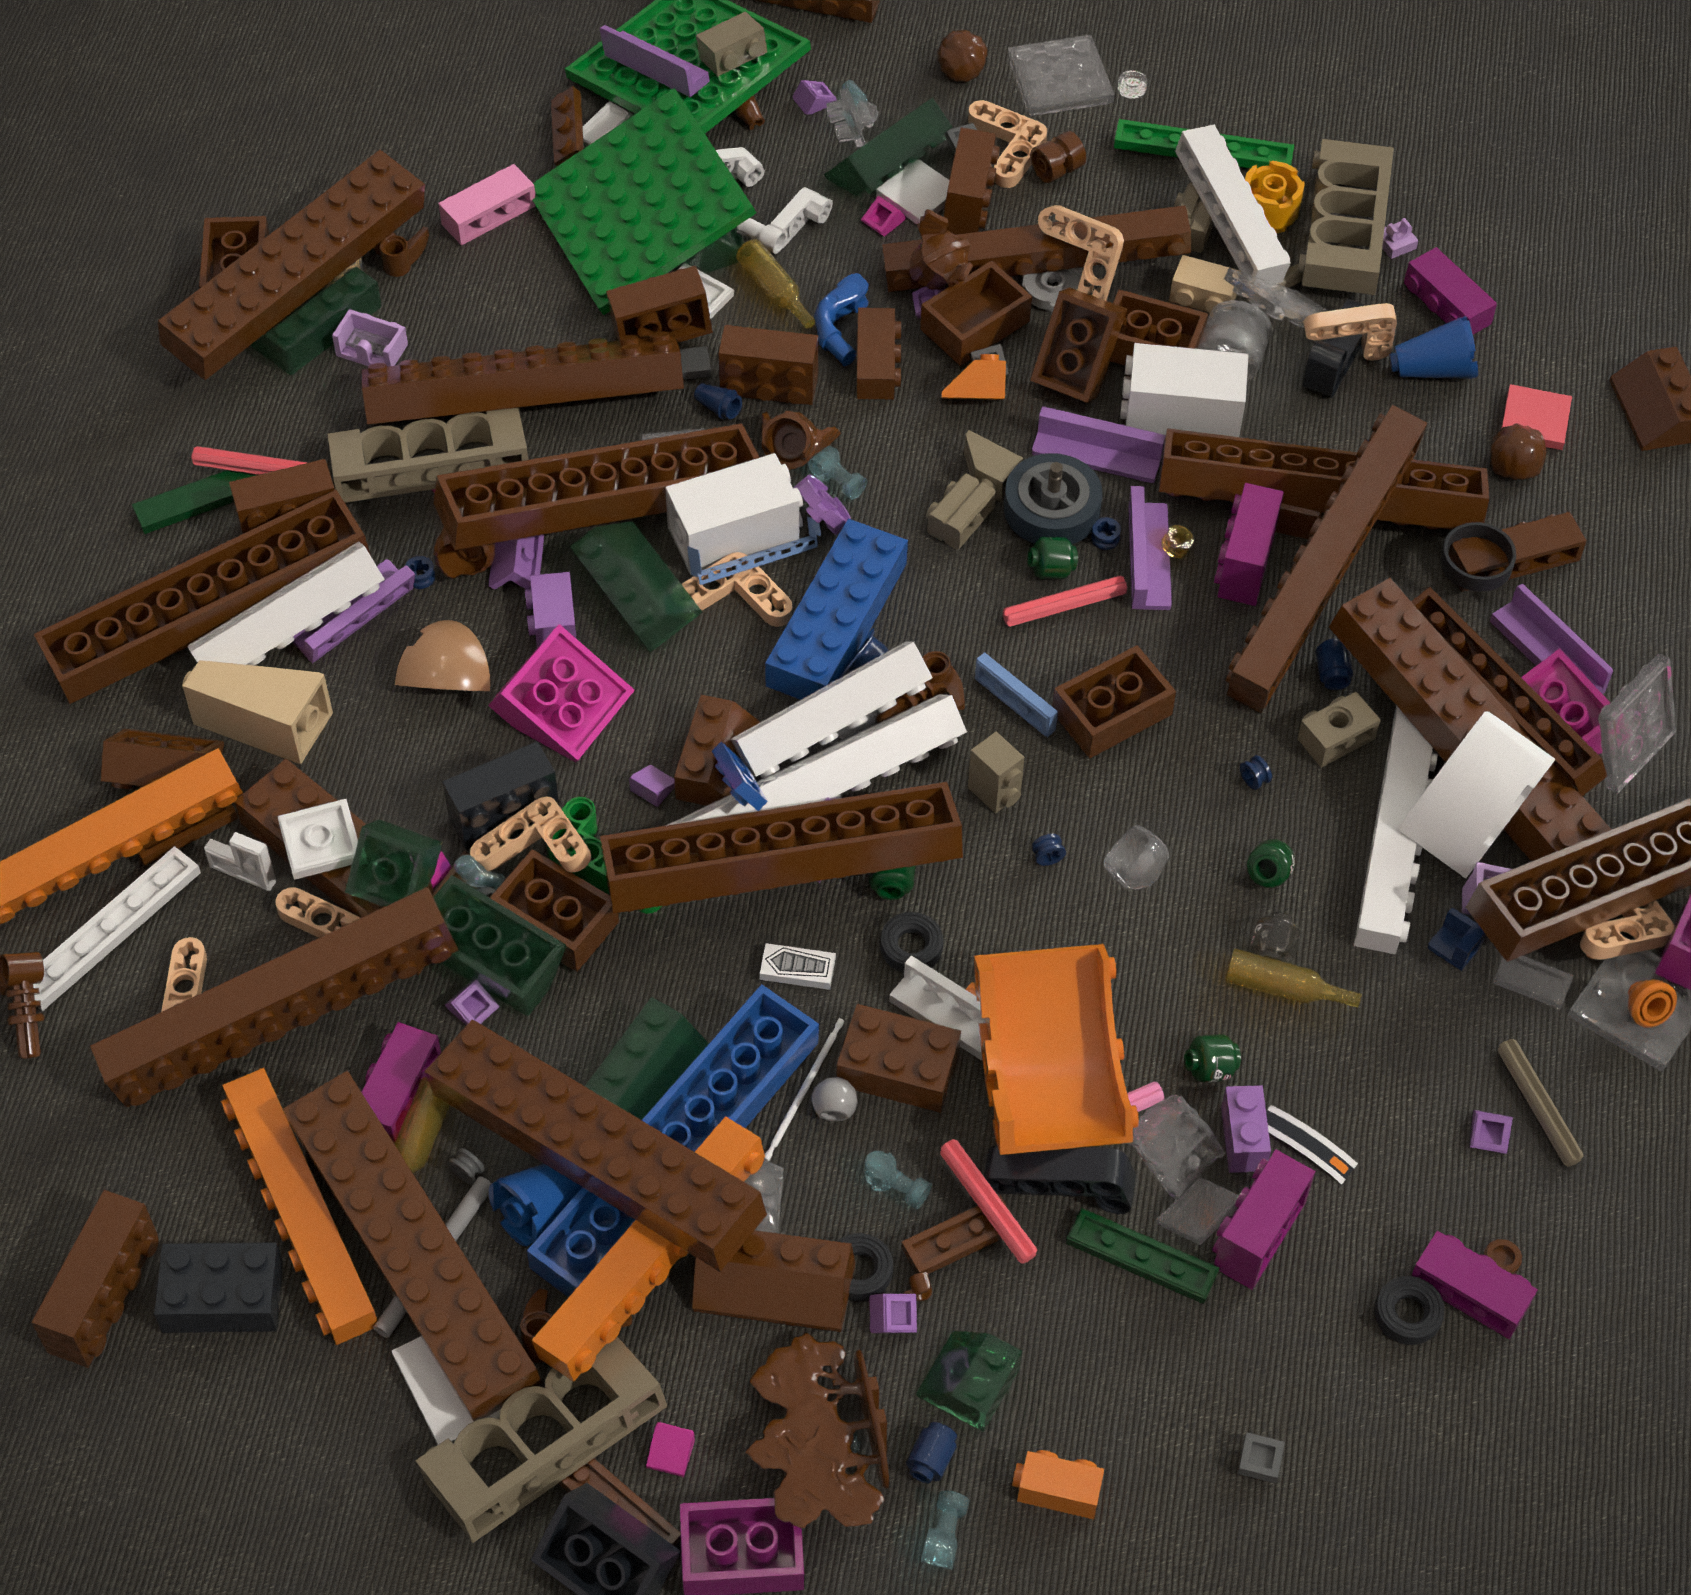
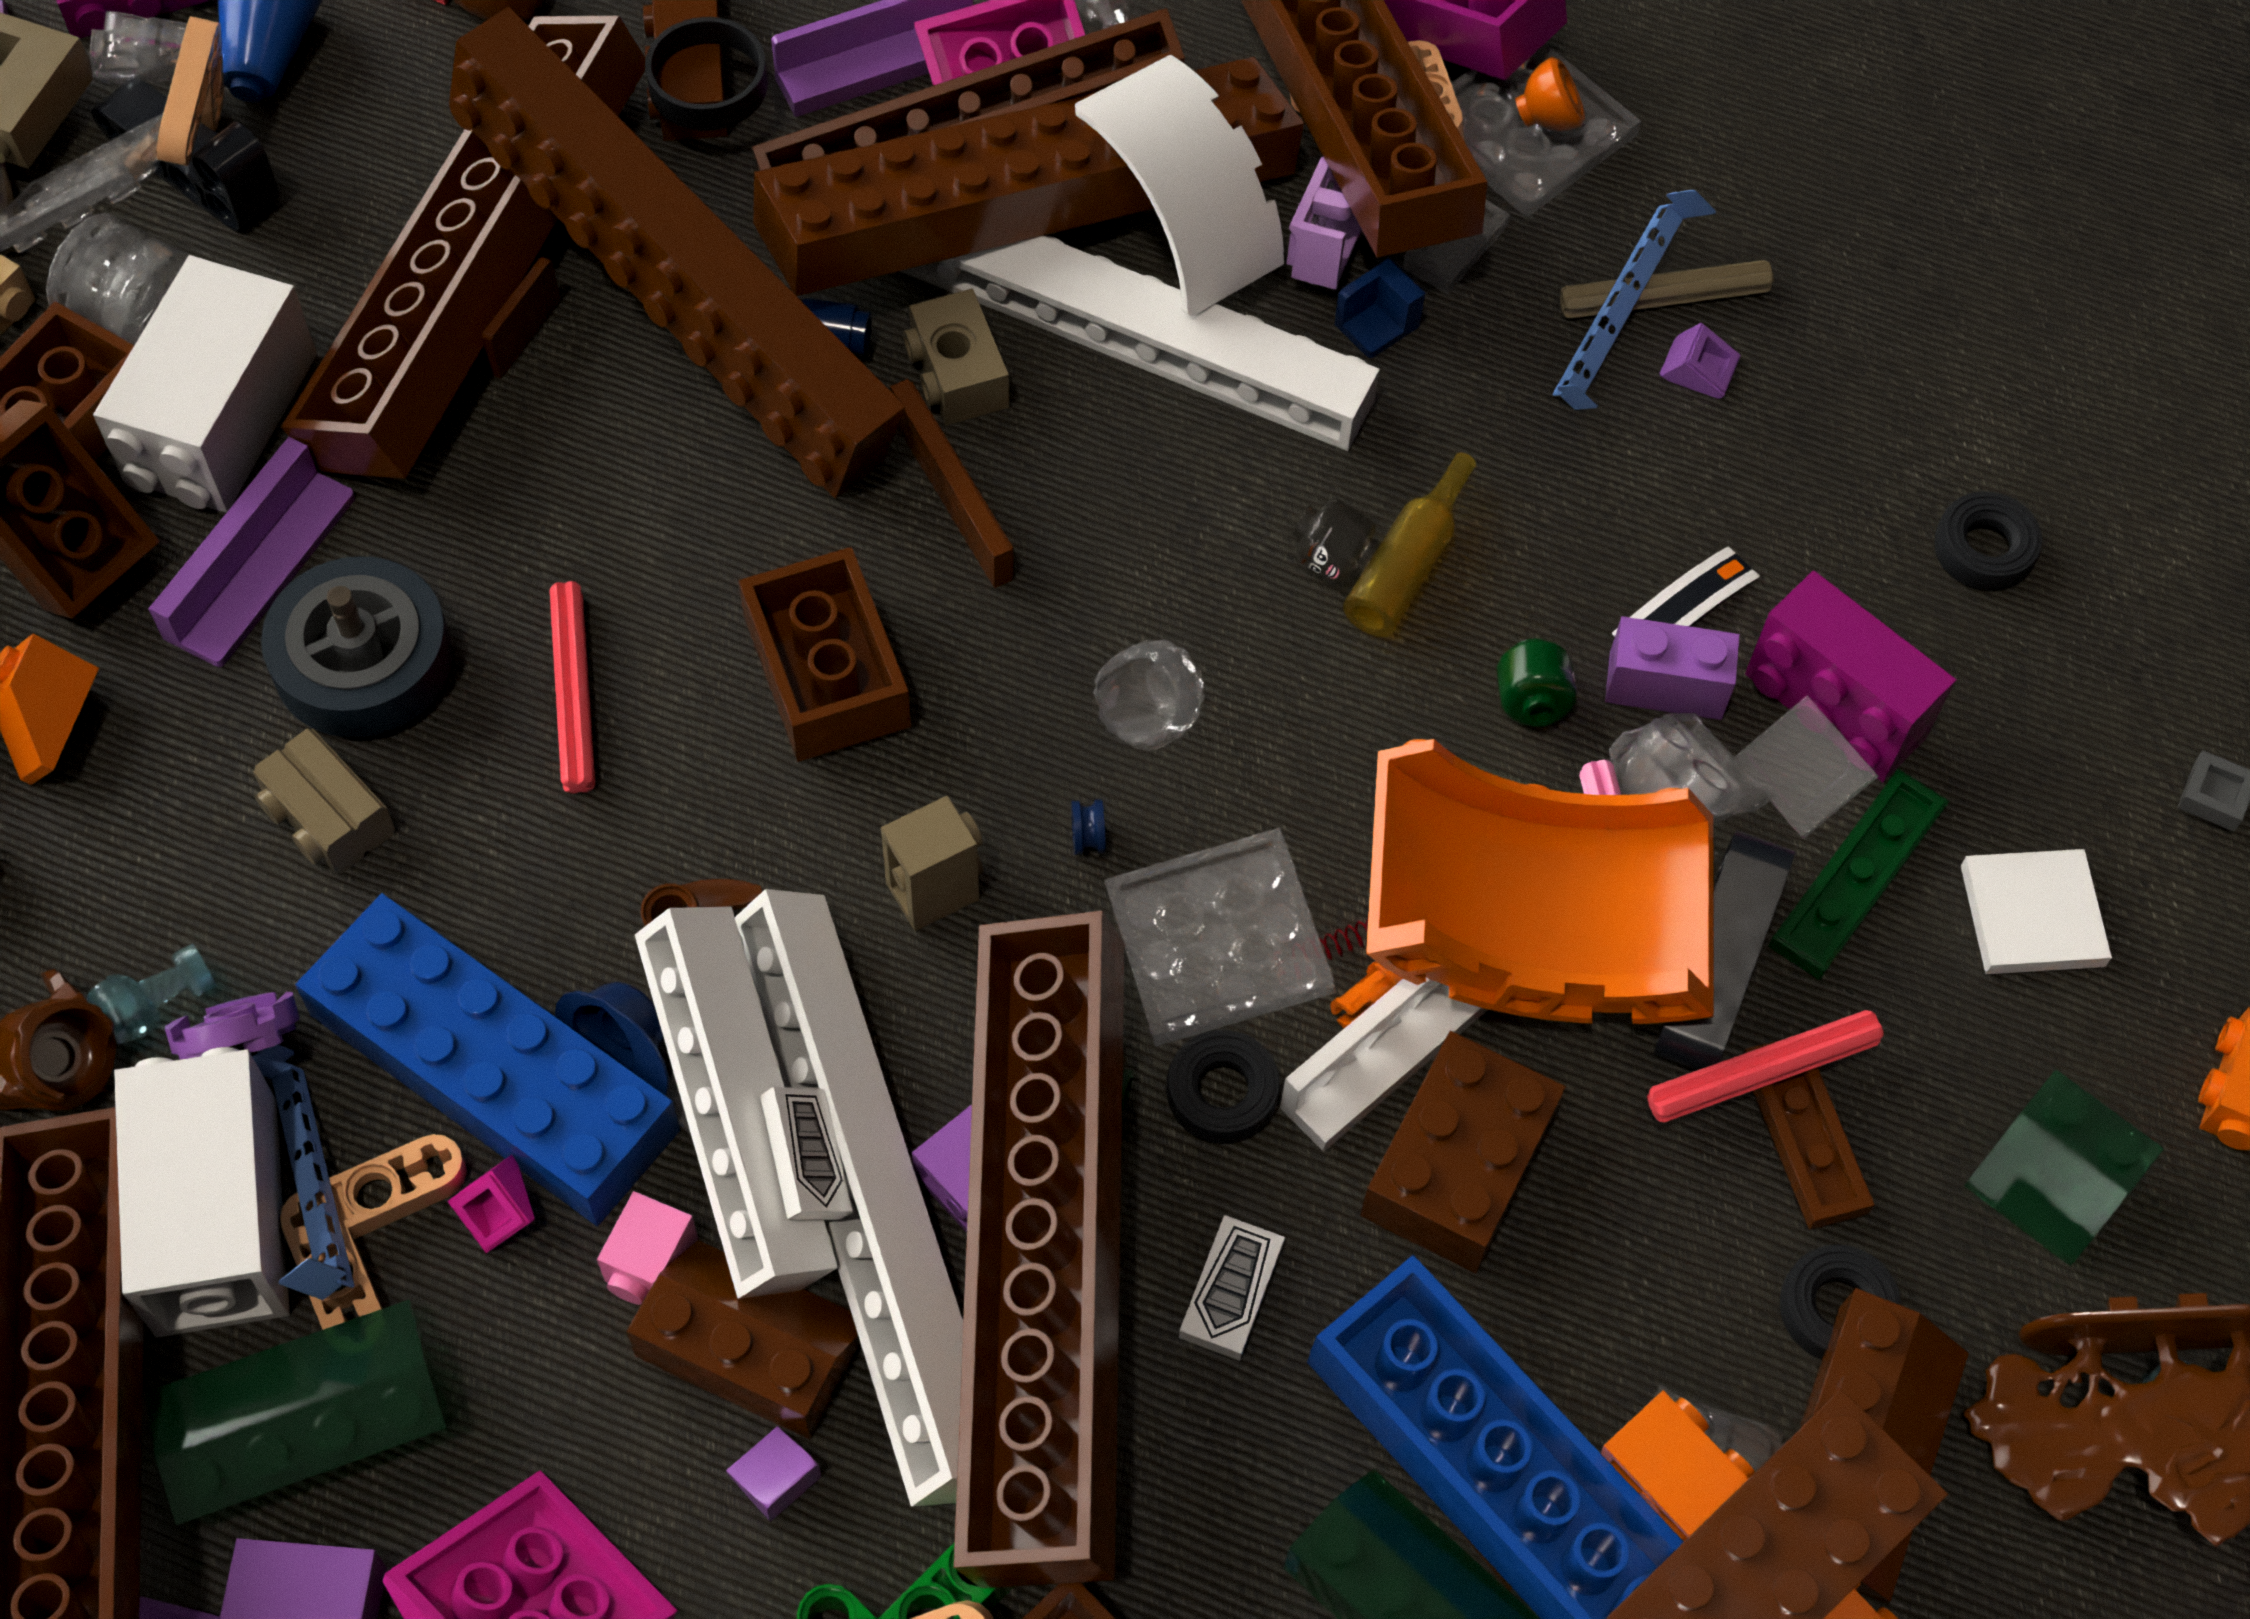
camera: 80 degrees left, 5 degrees up
(738, 777) = (864, 1287): blue plate -> none
(755, 697) = (643, 1245): none -> bright pink brick
(761, 634) = (494, 1204): none -> dark pink slope
(804, 1088) = (1512, 1351): white piece -> none
(807, 742) = (806, 1154): none -> white tile
(834, 1099) = (1523, 1275): light grey piece -> none
(883, 1175) = (1674, 1224): clear light blue leg -> none
(893, 1313) = (1936, 1268): medium lavender slope -> none
(920, 1286) = (1894, 1214): reddish brown hand -> none
(932, 1452) = (2195, 1256): dark blue brick -> none
(989, 462) = (232, 730): dark tan slope -> none
(996, 915) = (1219, 936): none -> clear plate
(1016, 695) = (756, 804): medium blue tile -> none
(1052, 558) = (482, 678): dark green head -> none
(1100, 539) = (461, 597): dark blue bush -> none
(1144, 1357) = (2035, 911): none -> white tile
(1147, 558) = (508, 538): medium lavender panel -> none
(1181, 535) = (505, 486): clear yellow bush -> none
(1249, 545) = (567, 372): magenta brick -> none
(1250, 742) = (954, 486): none -> reddish brown tile
(1255, 772) = (1010, 491): dark blue bush -> none
(1271, 863) = (1197, 510): dark green head -> none
(1404, 303) = (135, 48): none -> clear slope
(1475, 1284) = (1960, 445): magenta brick -> none
(1505, 1254) = (1912, 407): reddish brown tile -> none
(1509, 1071) = (1684, 205): none -> medium blue piece

